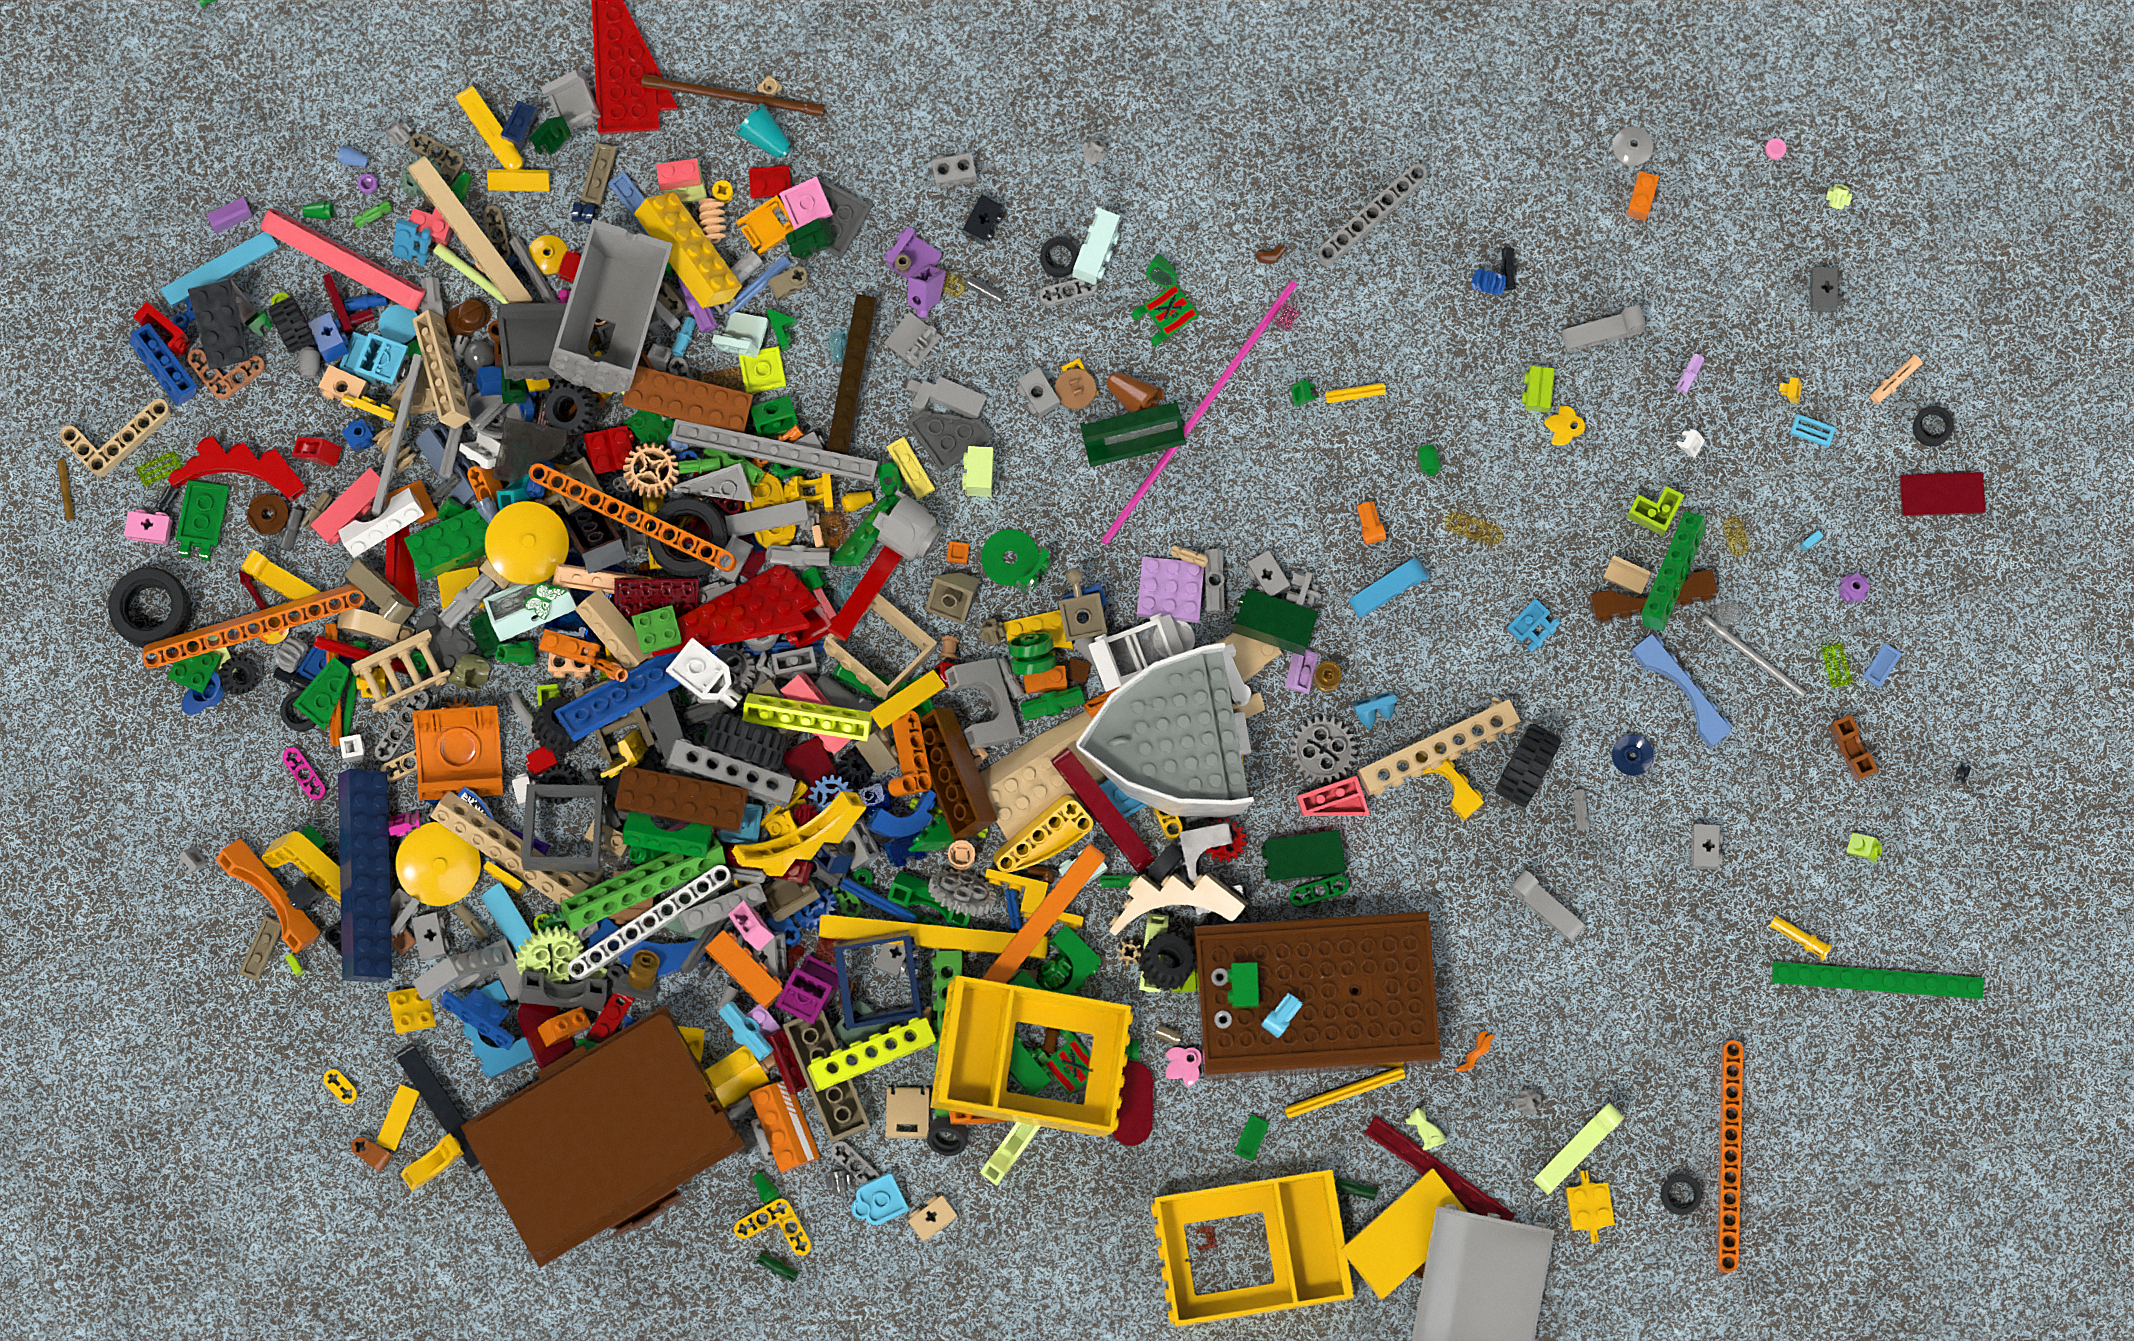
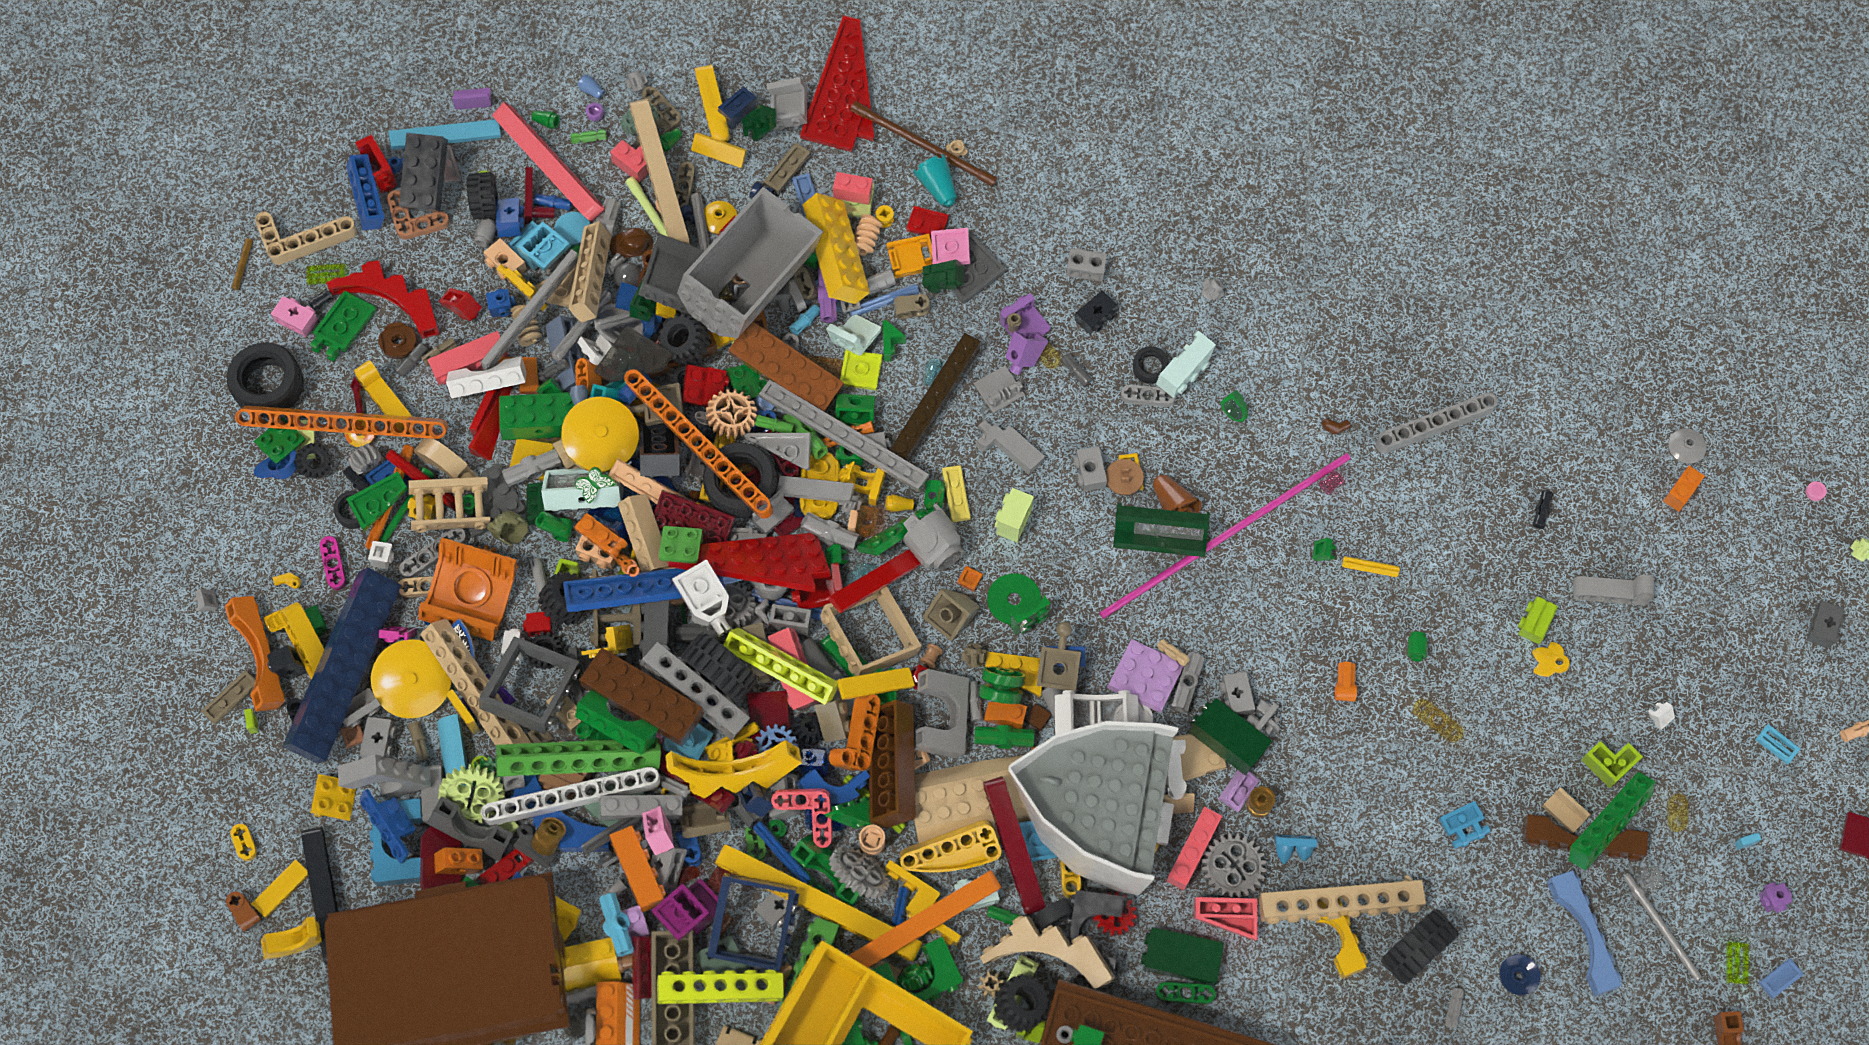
camera: 20 degrees right, 10 degrees down
(256, 321) = (457, 186): green tile -> none
(266, 806) = (288, 579): none -> yellow arm
(393, 604) = (465, 443): dark tan beam -> none
(405, 242) = (605, 163): dark azure plate -> none
(659, 357) = (778, 328): white slope -> none
(816, 909) = (722, 838): blue gear -> none
(891, 842) = (811, 803): none -> coral beam
(947, 436) = (997, 477): dark grey plate -> none
(1038, 871) = (942, 886): reddish brown arm -> none
(1168, 311) = (1229, 442): flag -> none
(1278, 746) = (1194, 848): none -> coral brick
(1389, 587) = (1344, 742): dark azure beam -> none
(1488, 282) = (1522, 513): blue gear -> none
(1690, 373) = (1679, 654): lavender axle -> none
(1791, 390) = (1769, 701): yellow tile -> none

